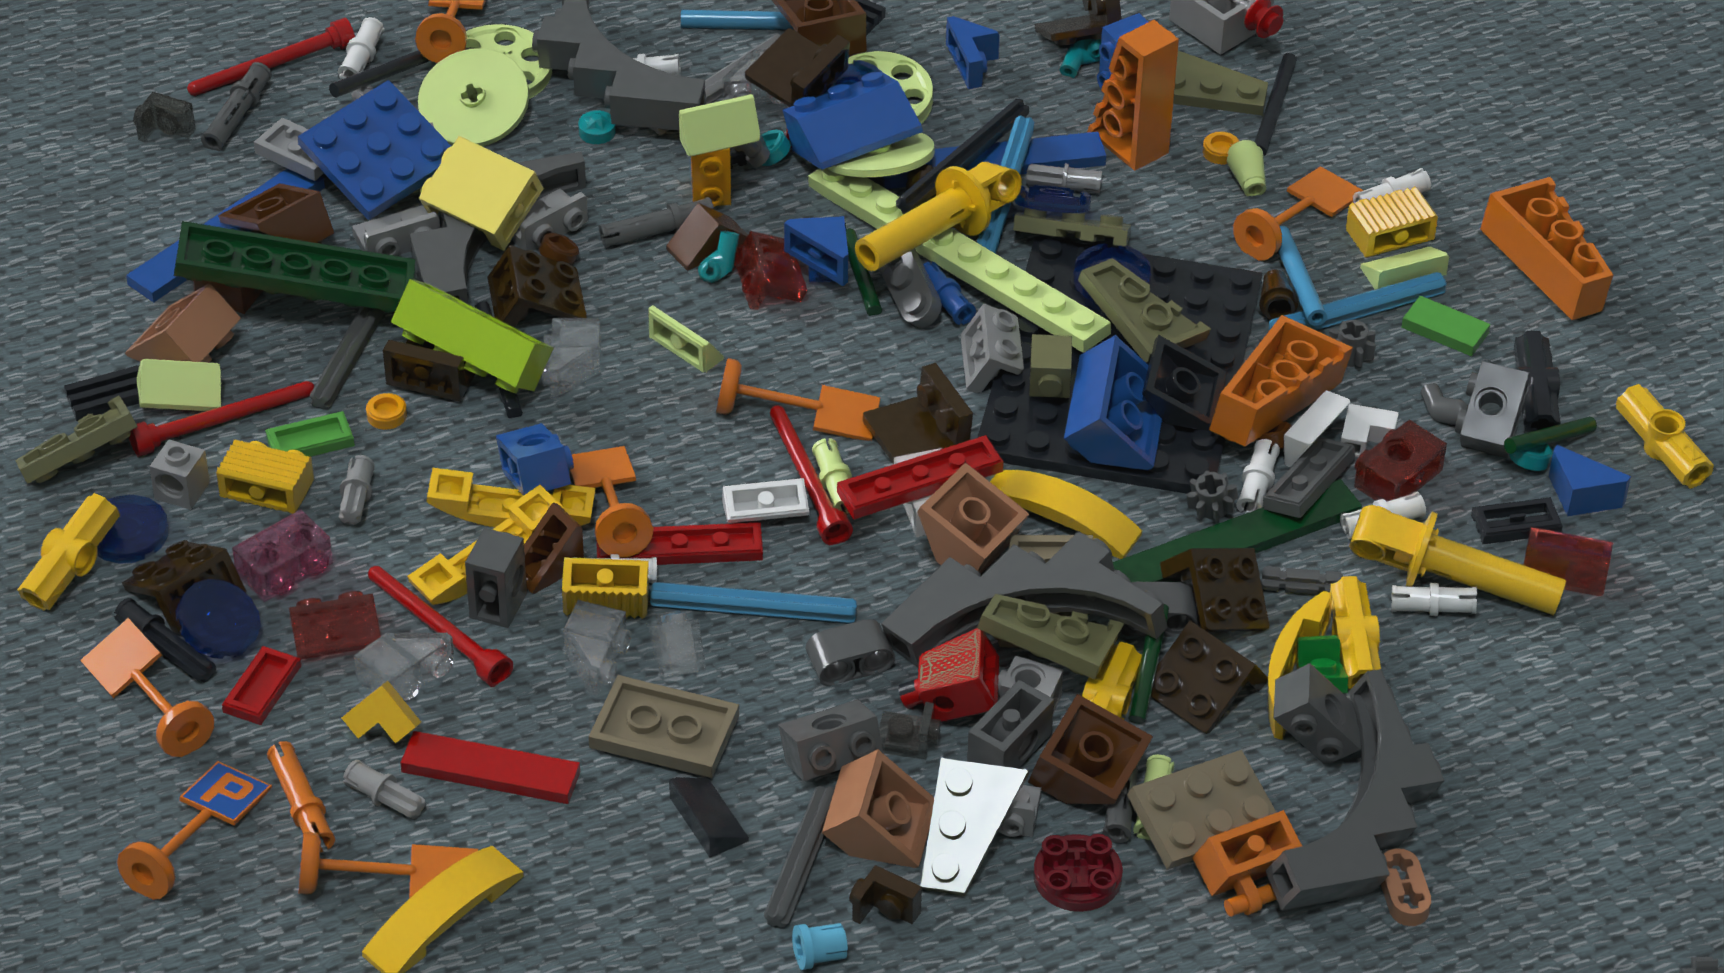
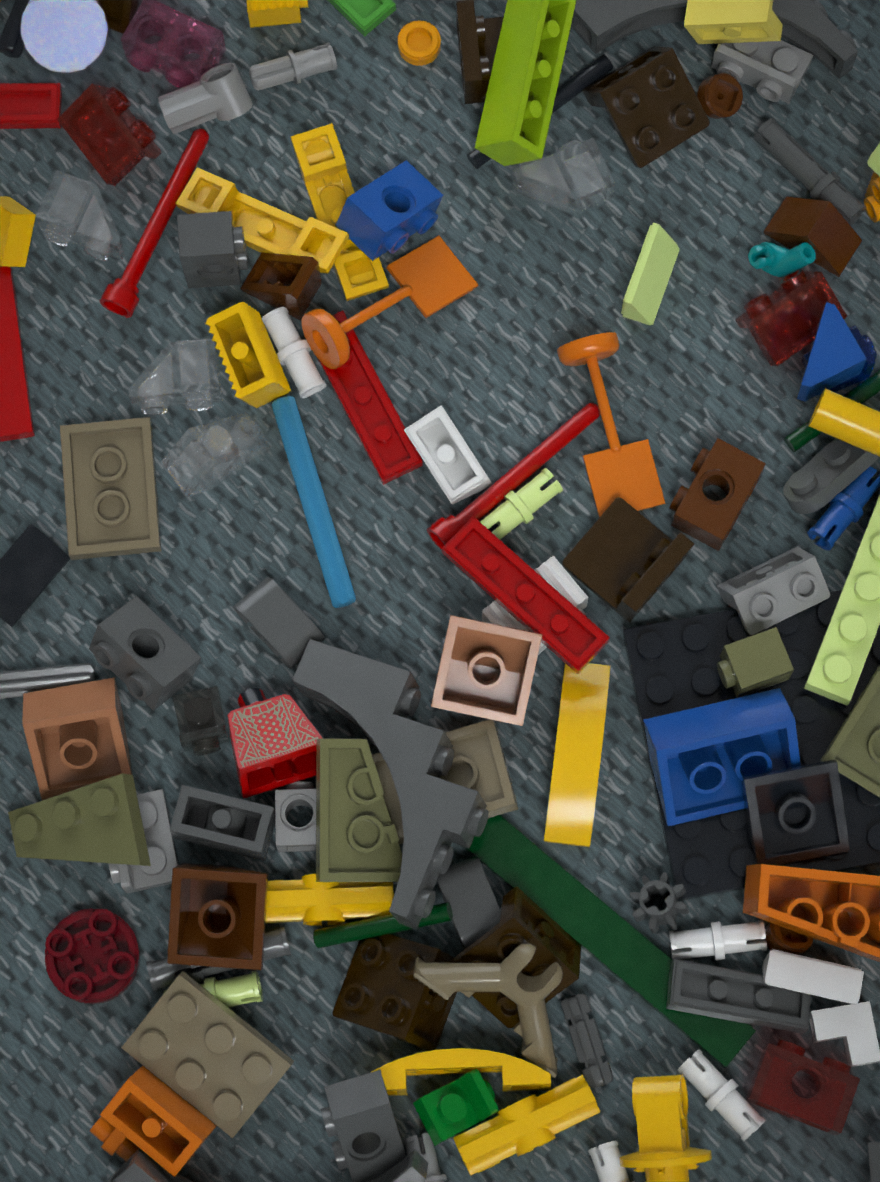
camera: 70 degrees right, 30 degrees up
(352, 542) = (216, 95): none -> light grey piece
(891, 354) = (731, 471): none -> reddish brown brick
(1246, 574) = (507, 978): none -> dark tan piece

